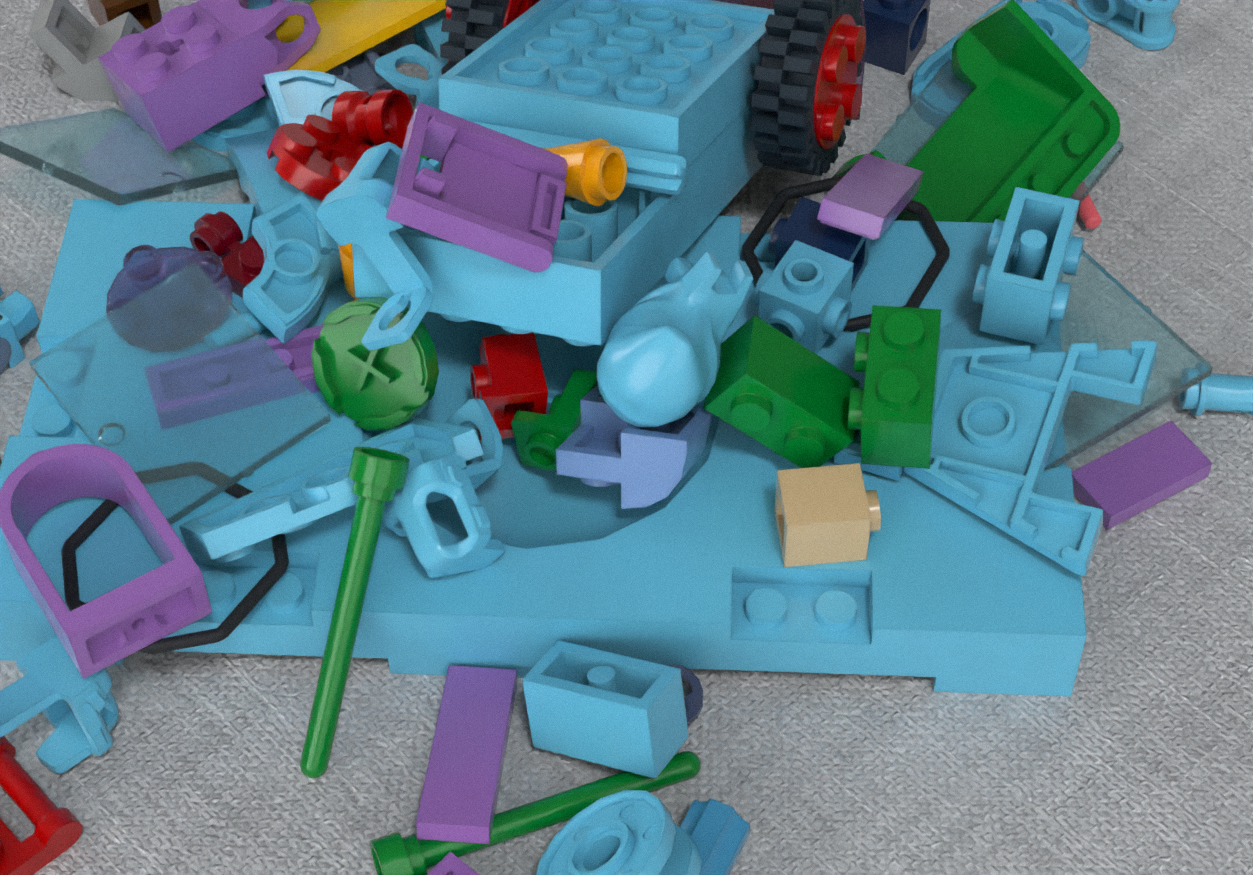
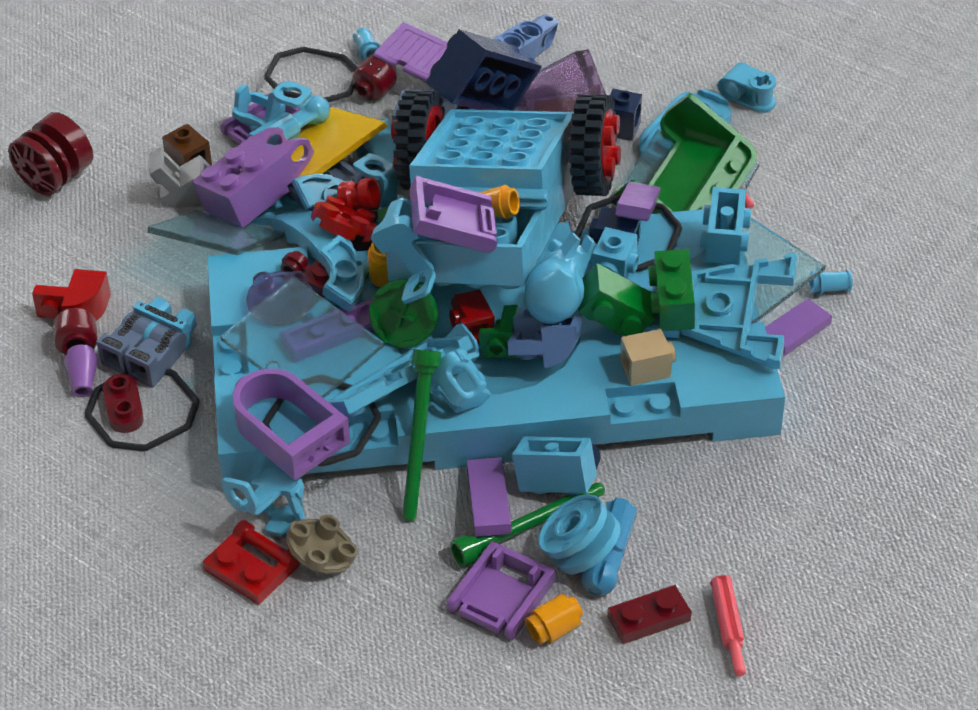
camera: 10 degrees left, 5 degrees down
(122, 808) = (321, 544): none -> dark tan dish

